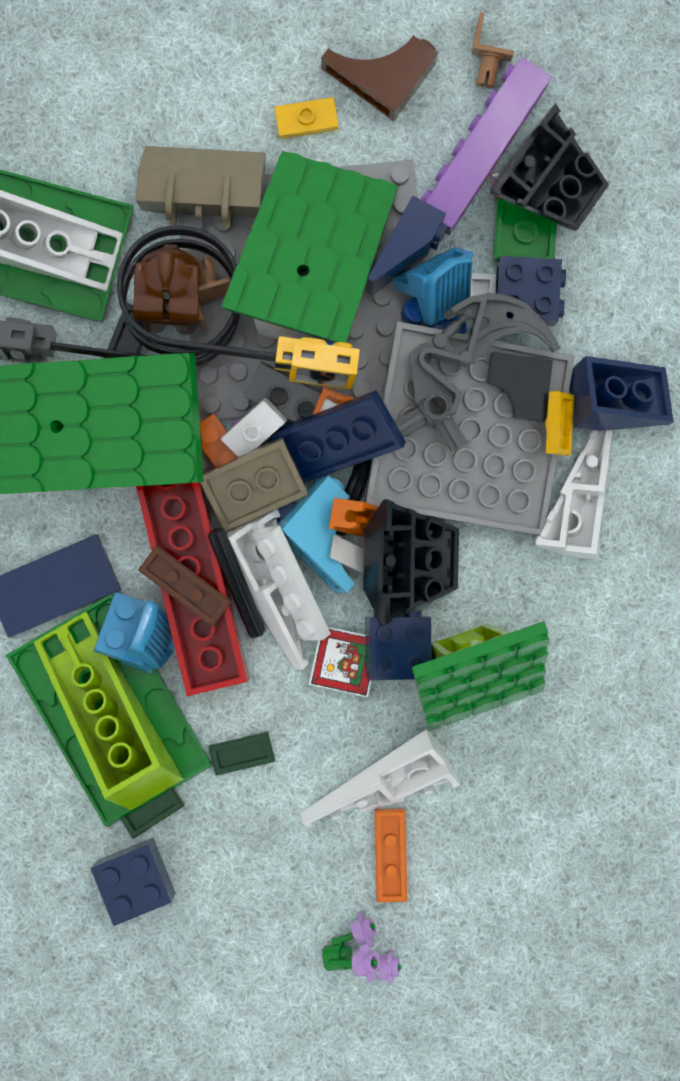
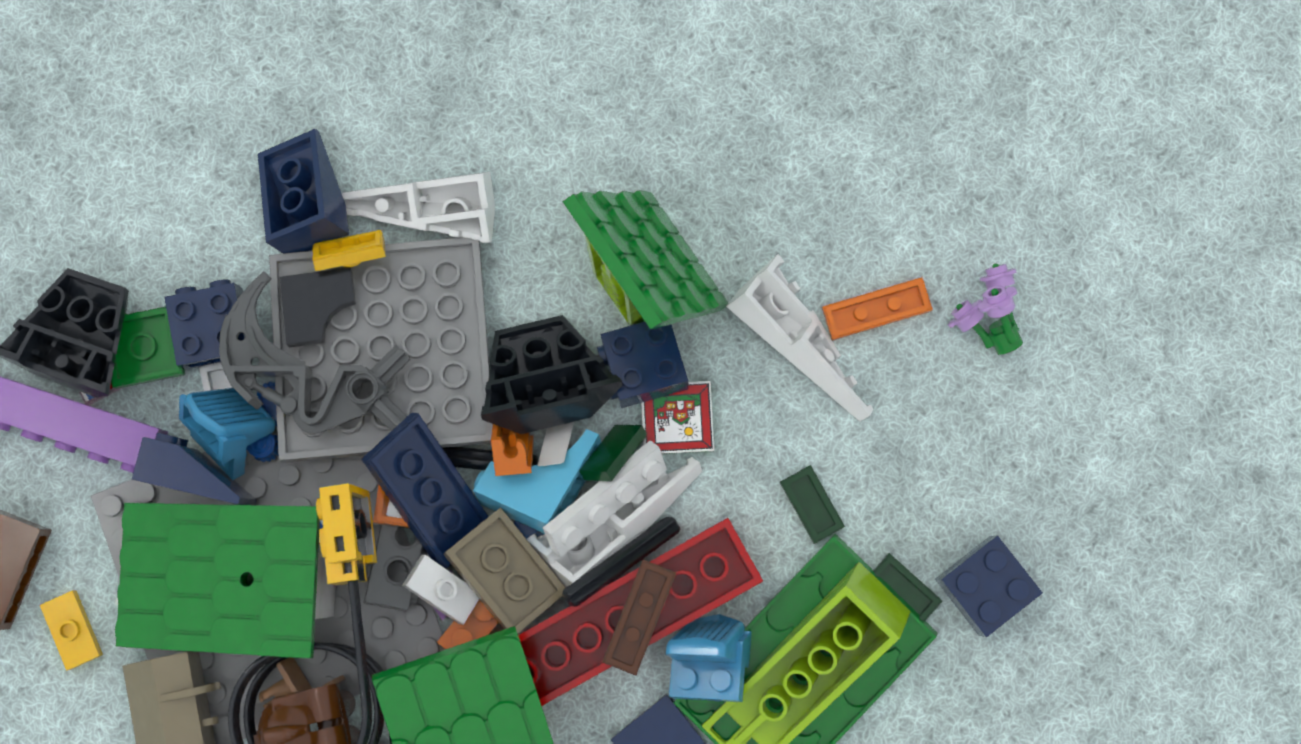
camera: 105 degrees left, 5 degrees down
(328, 600) = (613, 453): none -> dark green tile

